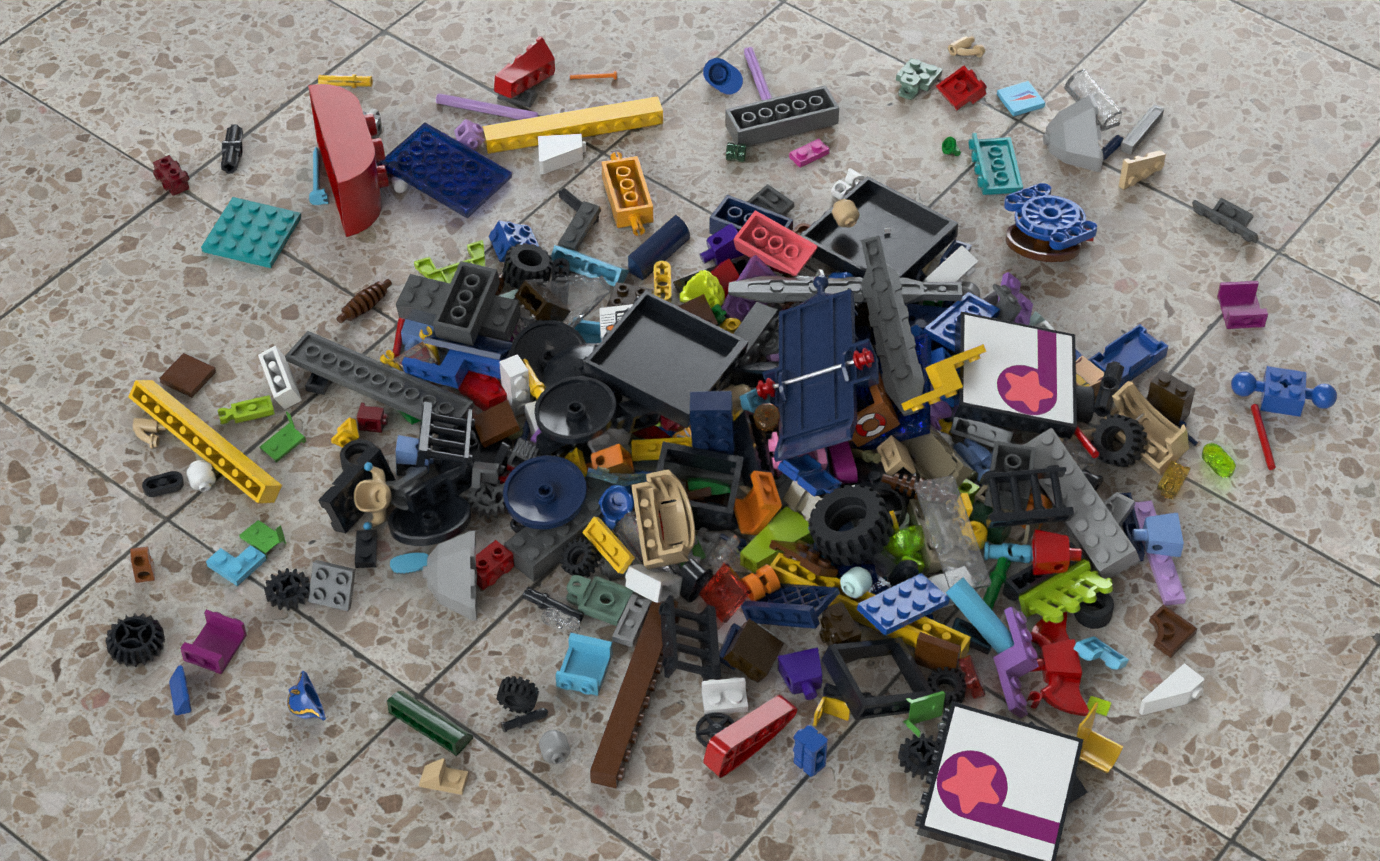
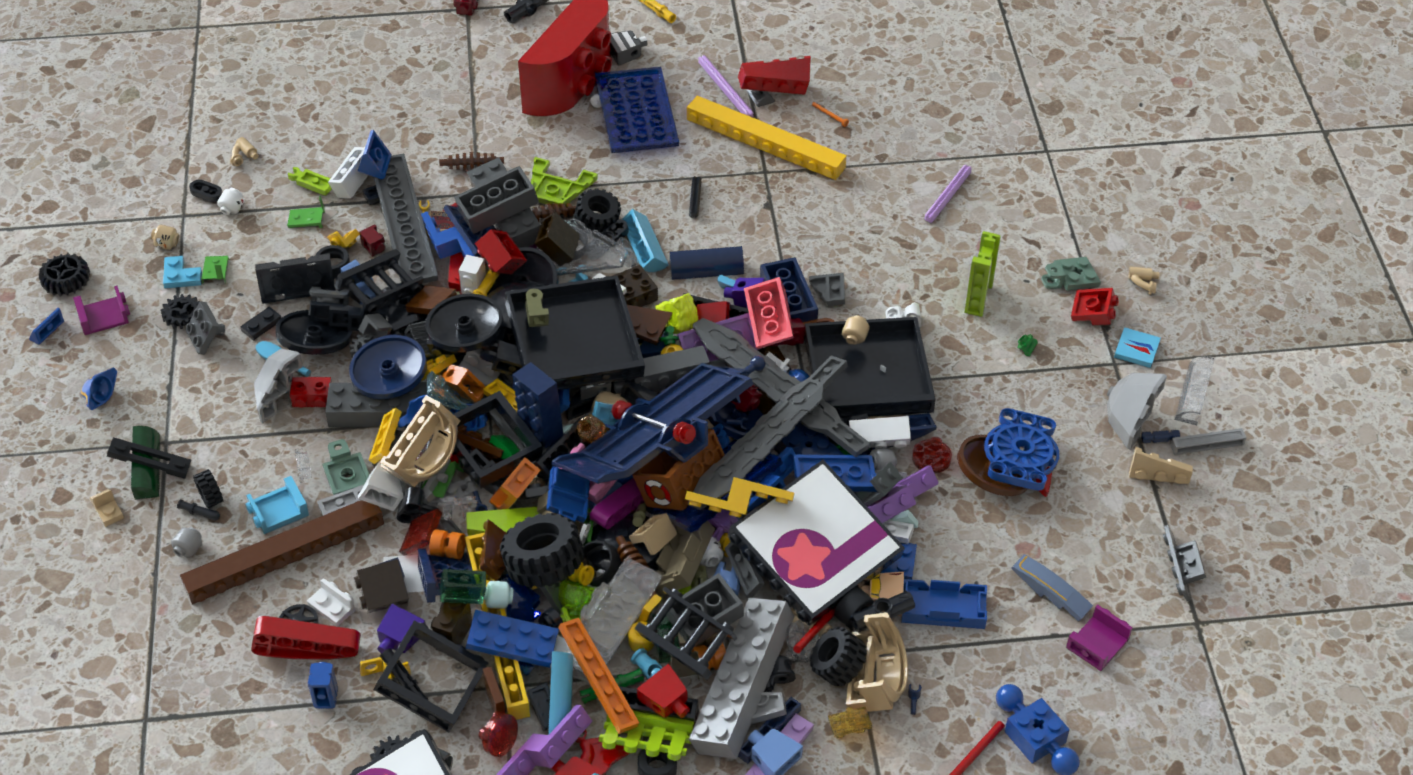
camera: 45 degrees right, 0 degrees up
(141, 562) = (124, 230): dark orange leg -> none
(184, 544) = (165, 237): none -> tan head
(187, 375) = (311, 133): reddish brown tile -> none
(205, 441) = (258, 182): yellow brick -> none
(251, 232) = (468, 69): teal plate -> none
(292, 348) = (375, 157): none -> blue slope
(373, 496) = (296, 289): tan piece -> none
(410, 721) = (120, 450): none -> black container
(469, 134) = (682, 95): lavender brick -> none
(510, 234) = (623, 187): blue bracket -> none
(521, 340) = (500, 252): none -> red brick
(544, 601) = (312, 445): black pin -> none
(559, 151) = (729, 149): white slope -> none
(572, 554) = (364, 432): black tyre -> none
(579, 226) = (673, 210): dark grey plate -> none
(625, 356) = (536, 314): none -> olive leg
(627, 192) = (734, 208): light orange brick -> none
(666, 277) = (682, 283): yellow beam -> none
(694, 250) = (725, 281): none -> medium azure tile
(706, 636) = (371, 551): black fence -> none
(723, 76) = (917, 173): blue piece -> none
(731, 152) = (854, 234): clear green wheel -> none
(782, 116) = (920, 231): dark grey brick -> none
(809, 153) = (911, 273): dark pink plate -> none
(838, 591) = (462, 586): none -> clear green brick
(877, 112) = (982, 273): none -> lime fence
(924, 709) = (436, 726): bright green piece -> none
(951, 678) = (467, 720): black tyre -> none
(990, 268) = (932, 453): none -> clear red tile
(995, 165) = (1041, 381): teal bracket -> none
(995, 577) = (598, 675): none -> orange plate
(1170, 294) = (1052, 586): none -> sand blue slope
(1171, 397) = (929, 659): dark brown brick -> none
(1221, 462) = (908, 740): clear neon green plate -> none

